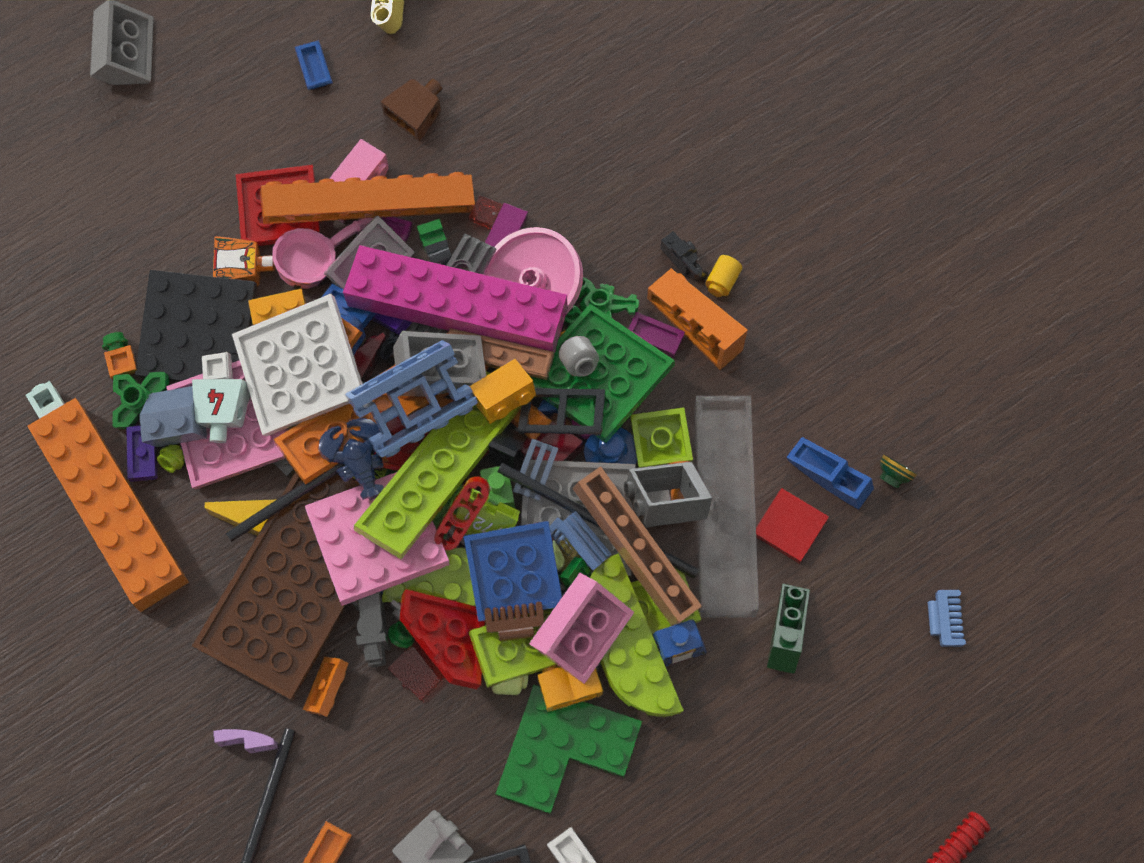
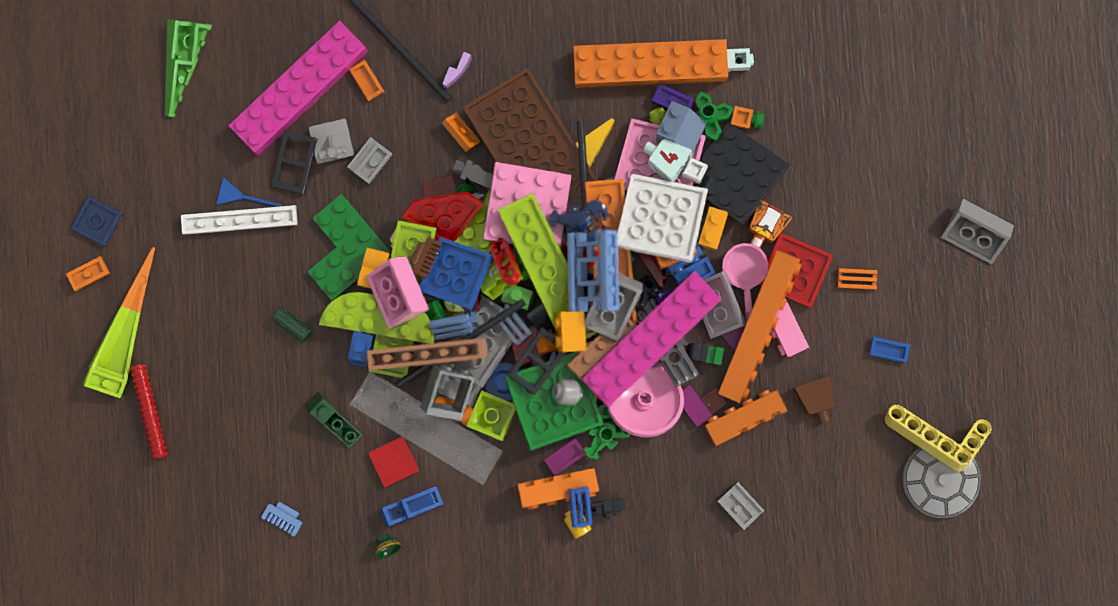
camera: 120 degrees right, 15 degrees up
(242, 123) = (857, 271): none -> orange tile
(430, 783) = (370, 160): none -> light grey plate
(494, 173) = (746, 417): none -> orange wedge
(588, 120) = (740, 505): none -> light grey plate
(704, 752) = (292, 325): none -> clear green axle
(706, 276) = (578, 490): none -> blue tile

